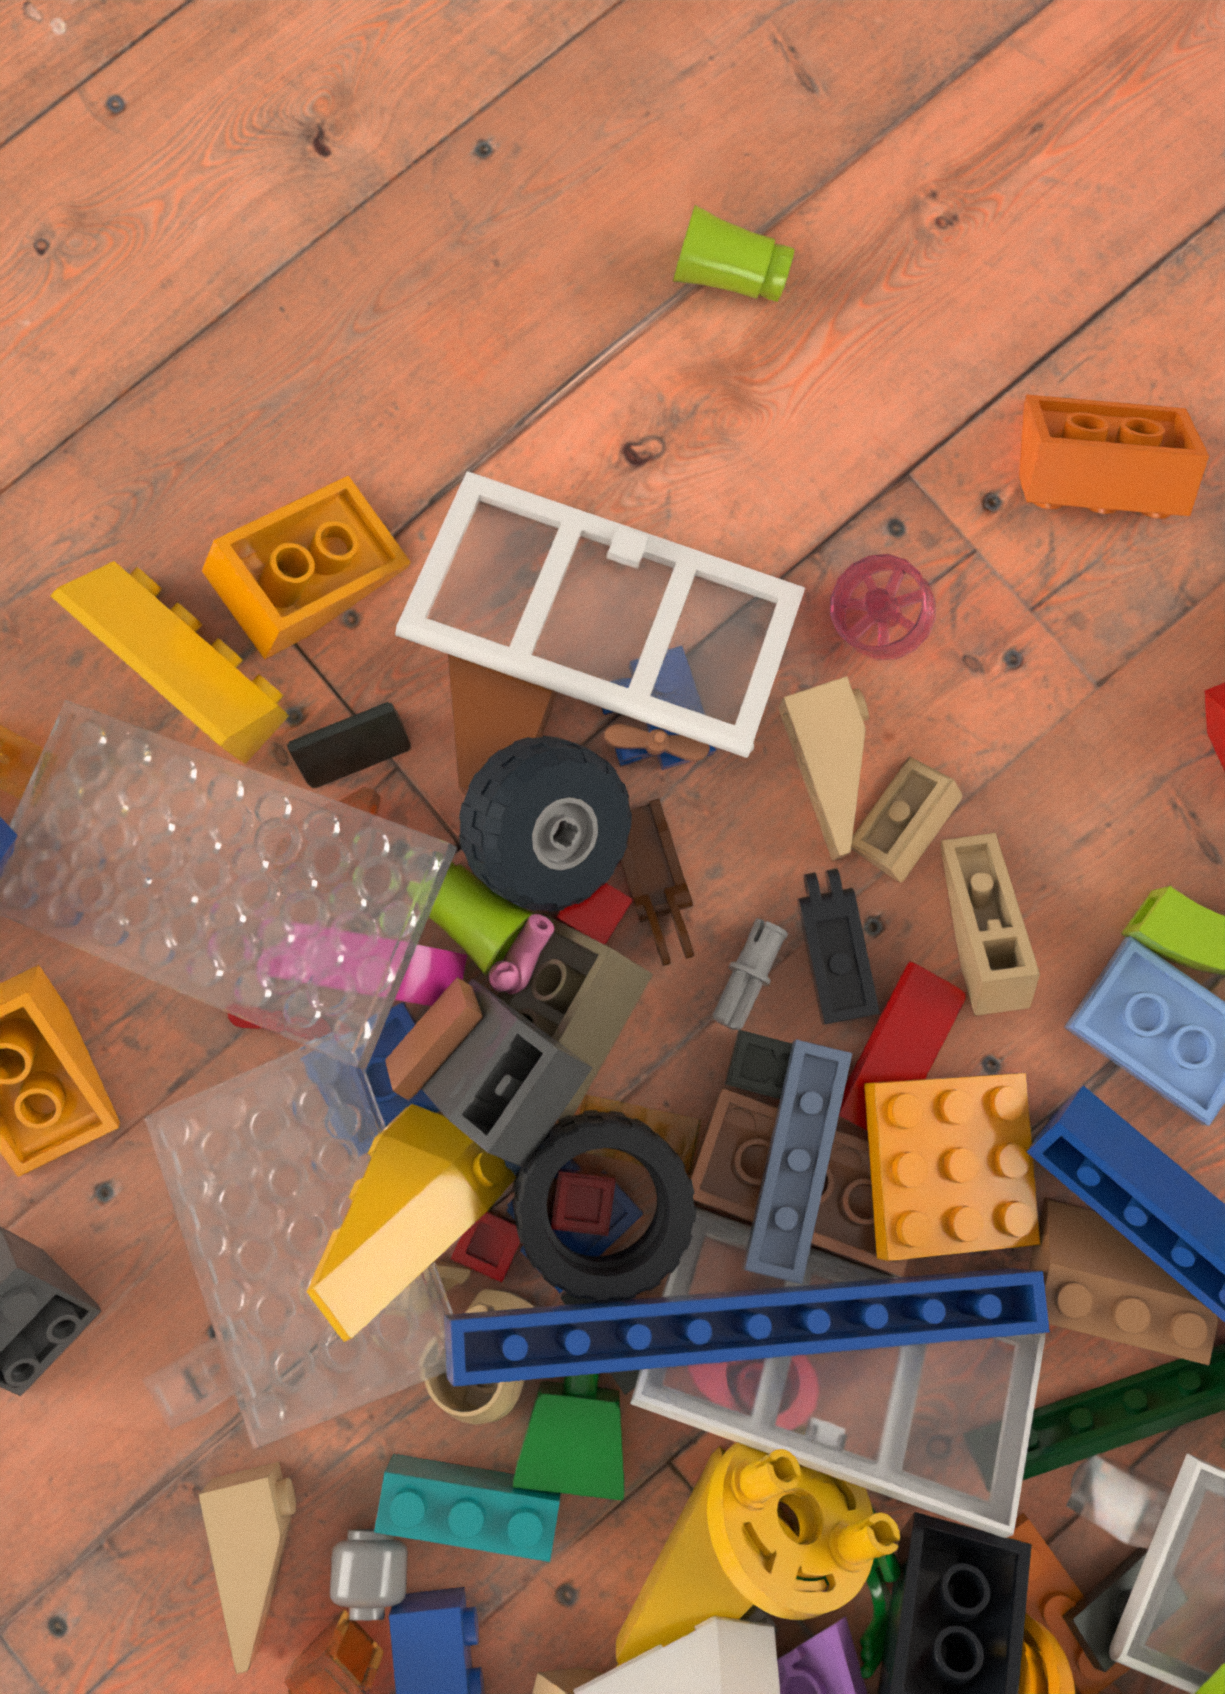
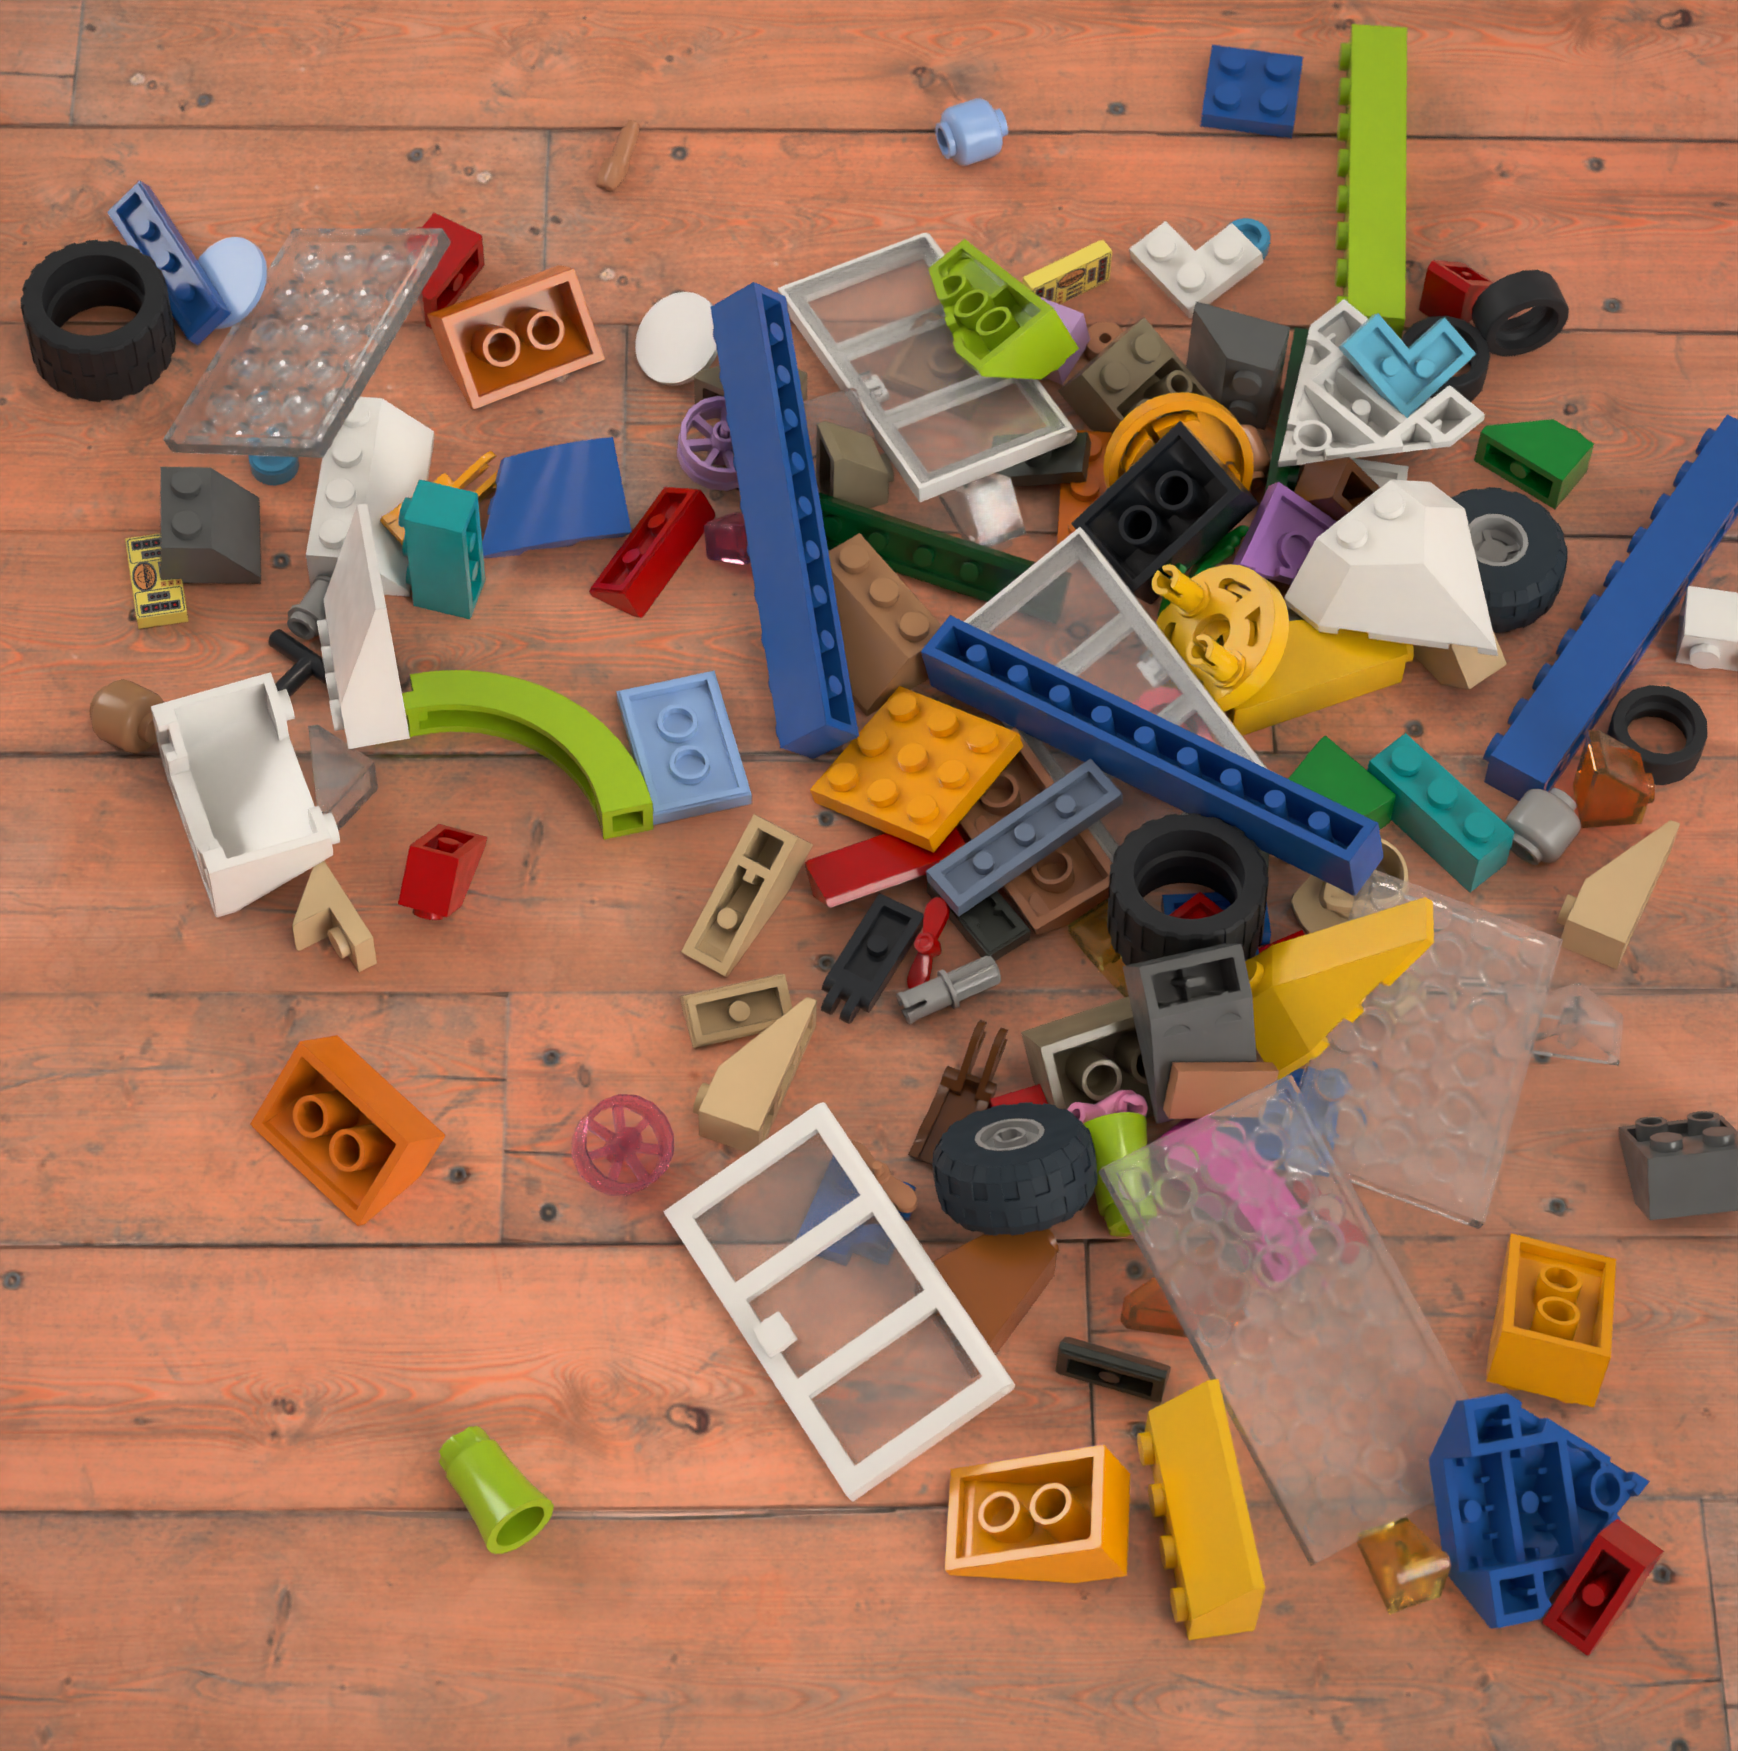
camera: 140 degrees left, 25 degrees down
(800, 1001) = (927, 943): none -> red piece

